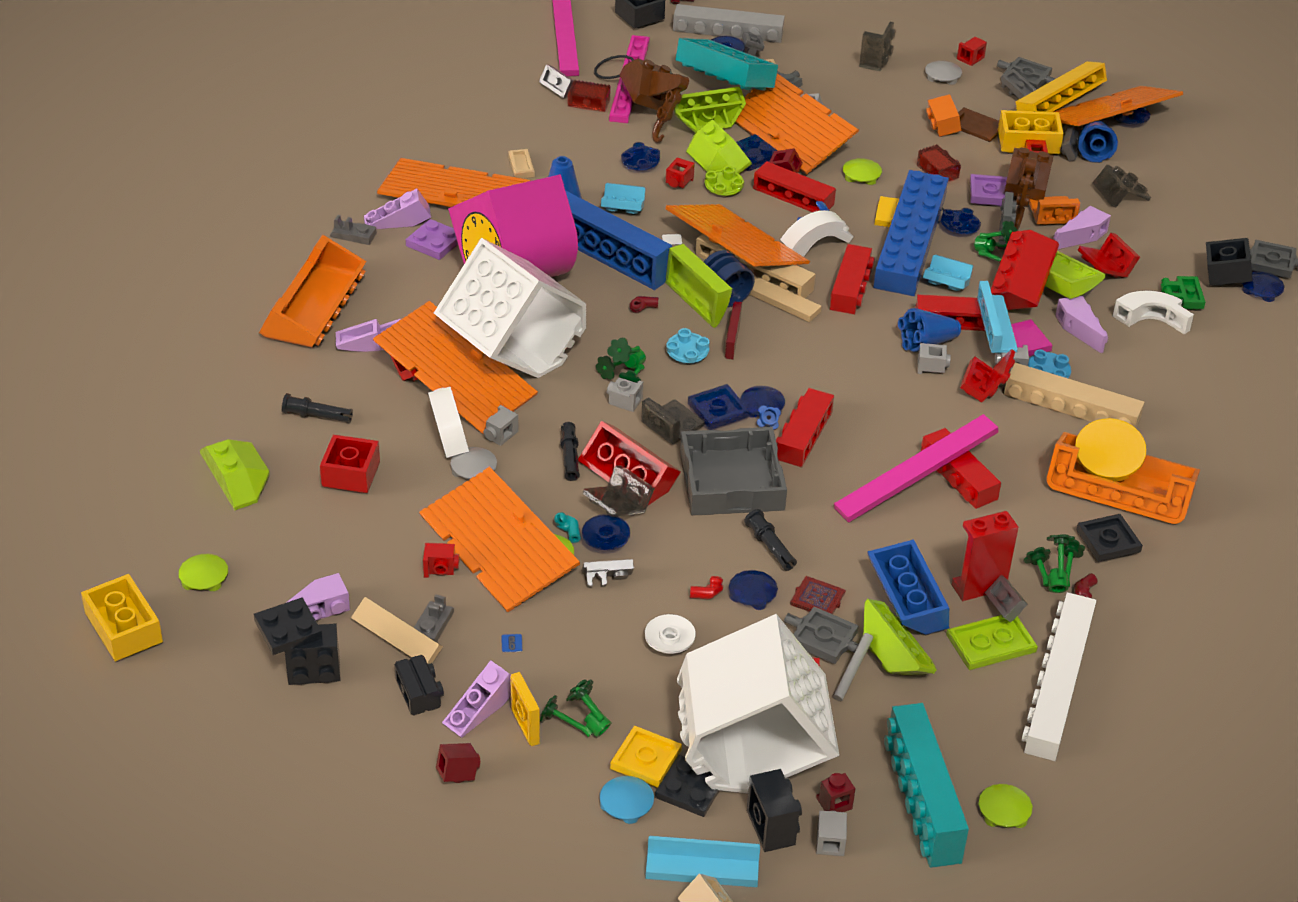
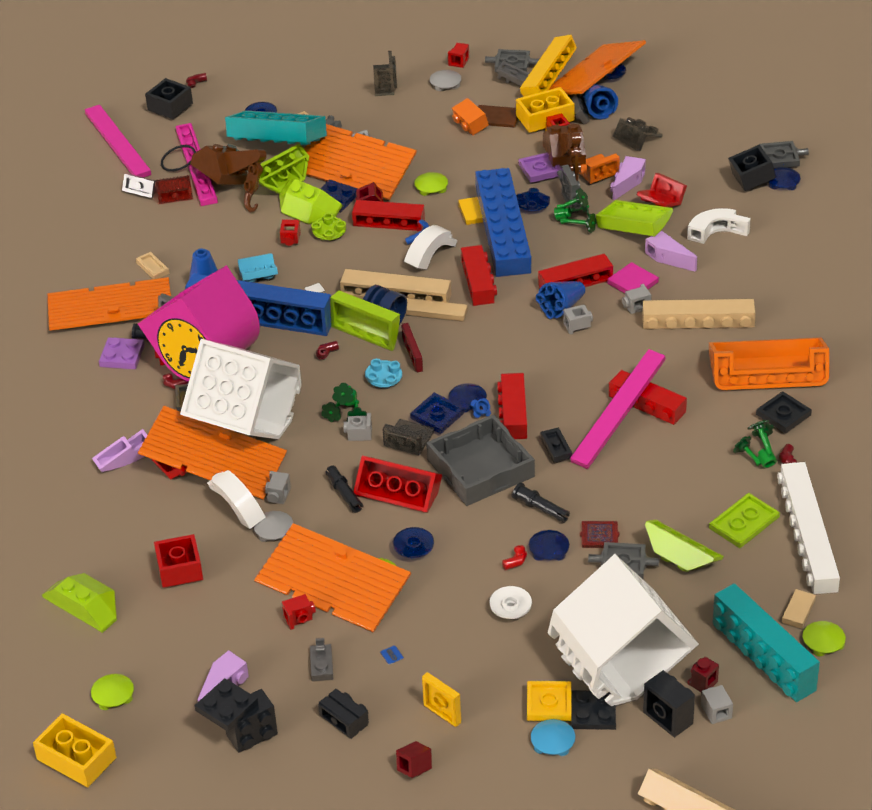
camera: 20 degrees left, 0 degrees up
(306, 407) = (108, 528): black pin -> none
(315, 295) = (55, 434): orange windscreen -> none
(353, 232) = (49, 370): flat silver plate -> none
(395, 631) = (298, 679): tan tile -> none
(401, 212) = (79, 341): lavender slope -> none
(481, 700) = (399, 706): lavender slope -> none
(568, 525) = (380, 547): teal arm -> none
(596, 721) = (497, 688): green plant -> none
(618, 568) = (440, 567): plate -> none
(623, 495) = (408, 507): clear smoke bracket -> none
(640, 157) = (248, 228): clear blue dish -> none
(685, 858) = (634, 761): medium azure panel -> none
(727, 22) = (250, 91): light grey brick -> none
(737, 235) = (370, 268): orange door -> none
(753, 43) = (280, 101): flat silver plate -> none
(826, 484) = (556, 444): none -> black plate
(853, 667) = (660, 572): light grey bar -> none
(911, 587) = (668, 500): blue slope -> none
(938, 162) = (488, 158): clear red brick -> none
(948, 272) = (549, 245): medium azure bracket -> none
(984, 380) = (627, 323): red bracket -> none
(987, 554) = (716, 457): red panel -> none
(995, 762) = (798, 608): none -> tan tile
(996, 320) = (610, 271): medium azure panel -> none
(1006, 598) = (740, 484): flat silver plate -> none
(1024, 269) = (609, 224): red slope -> none
(1051, 363) = (666, 292): dark azure dish -> none
(1111, 449) = (752, 343): yellow tile -> none
(1188, 291) = (732, 200): green plate -> none

